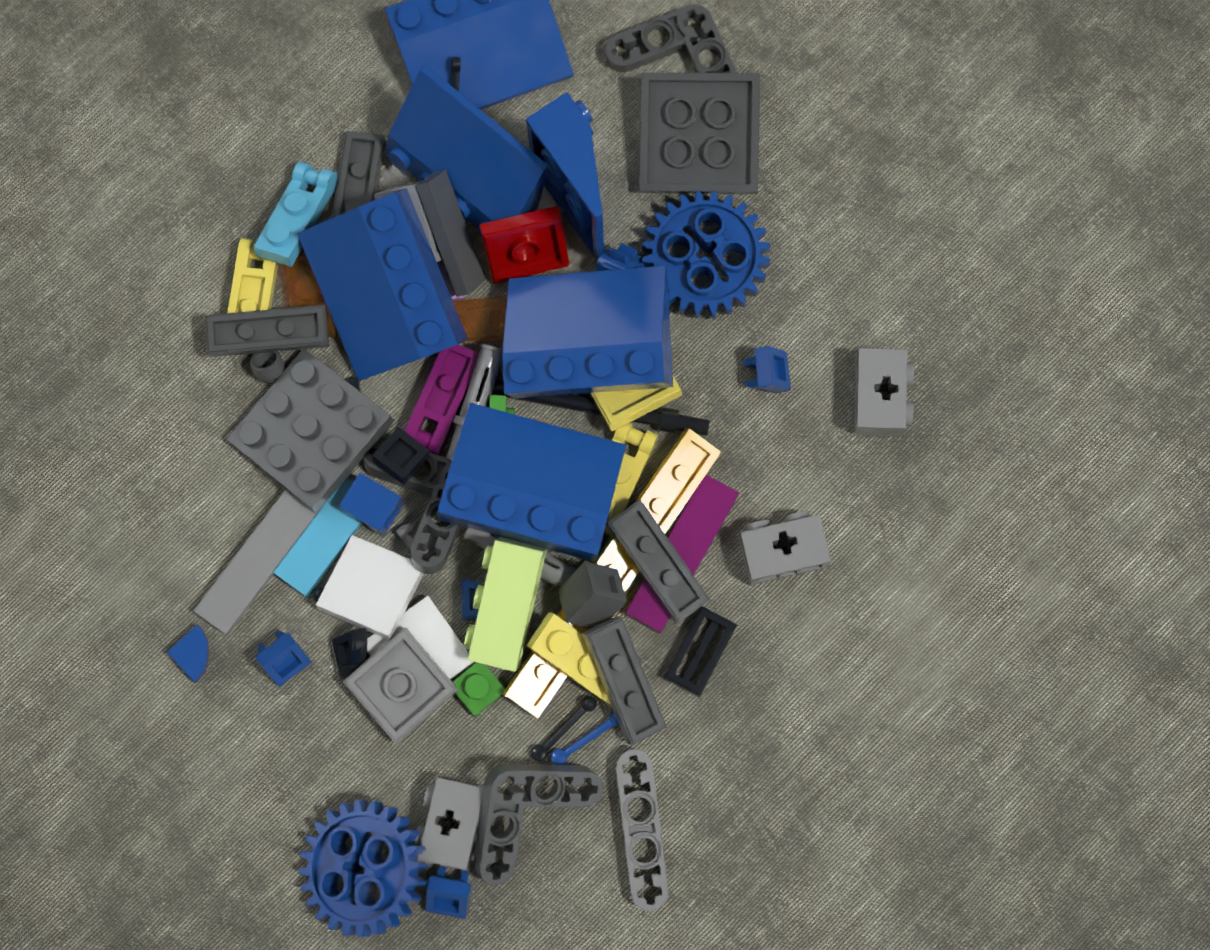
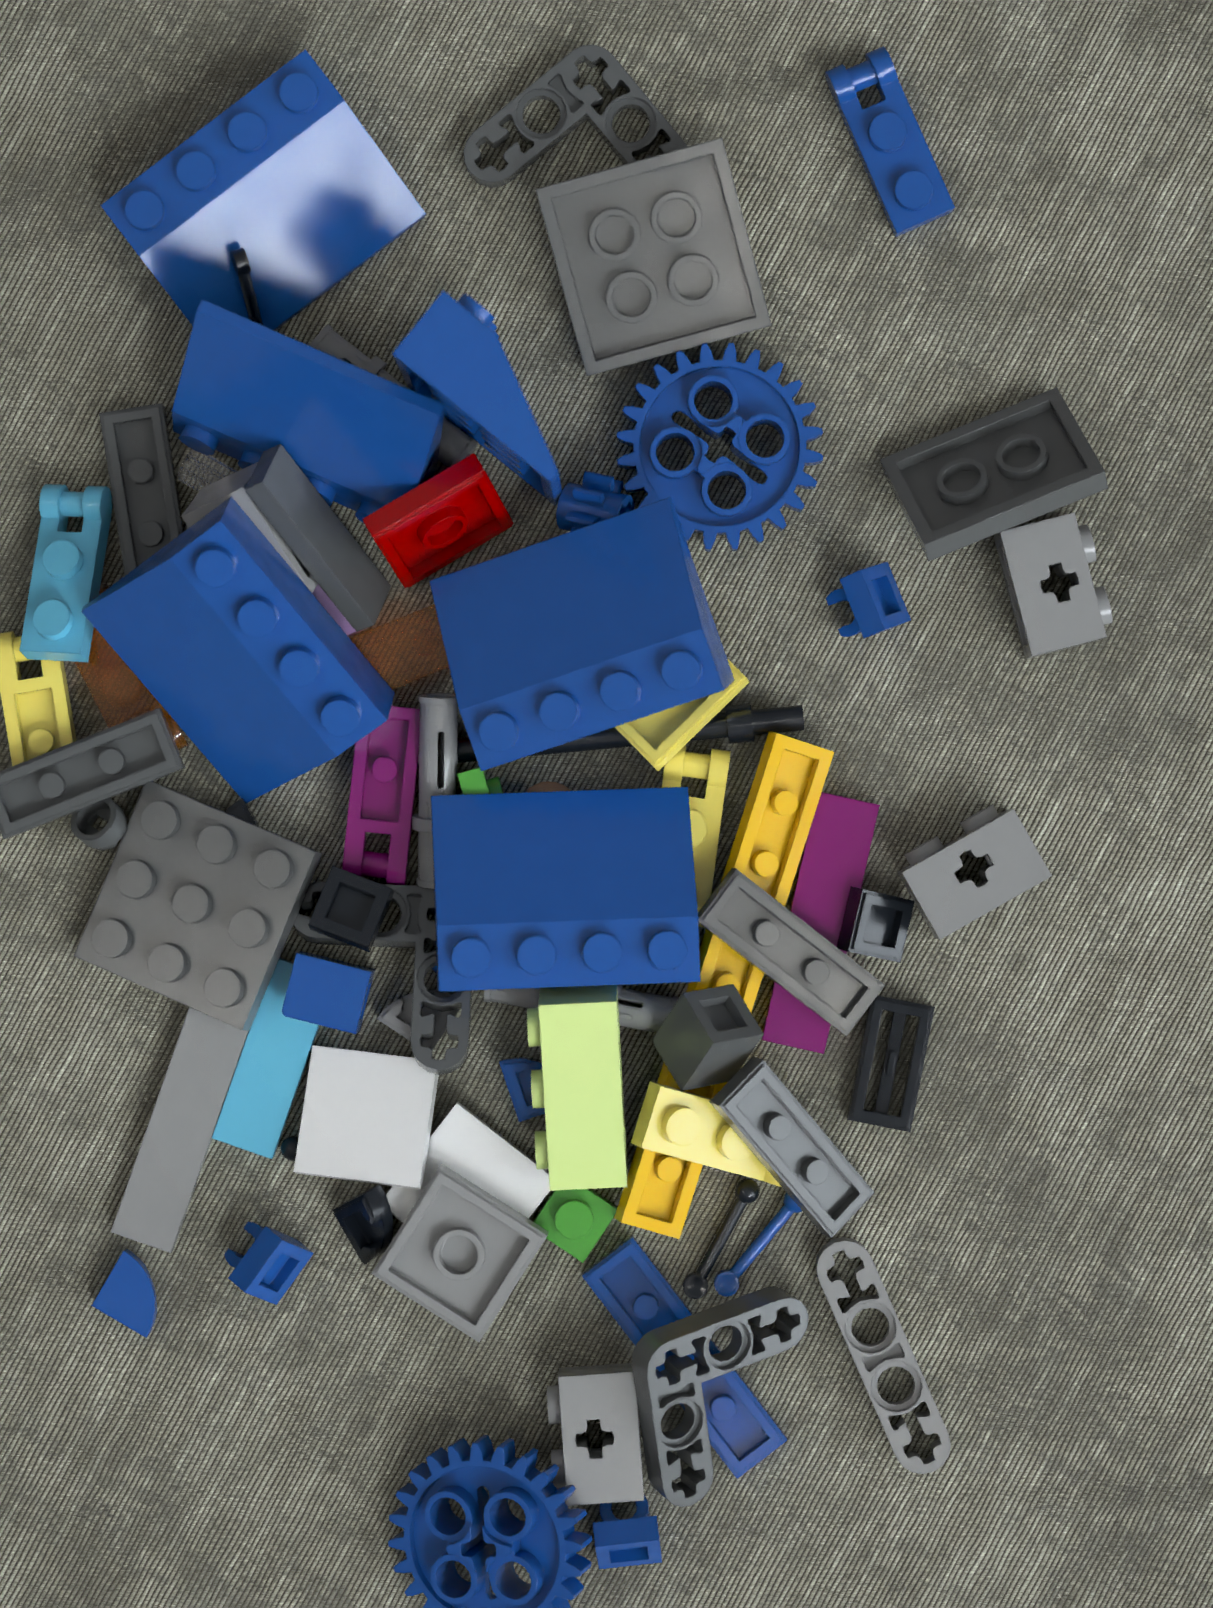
camera: 20 degrees left, 10 degrees up
(537, 841) = (645, 1300): none -> blue tile
(715, 563) = (875, 924): none -> black tile
(859, 112) = (890, 143): none -> blue plate
(865, 315) = (993, 474): none -> dark grey plate

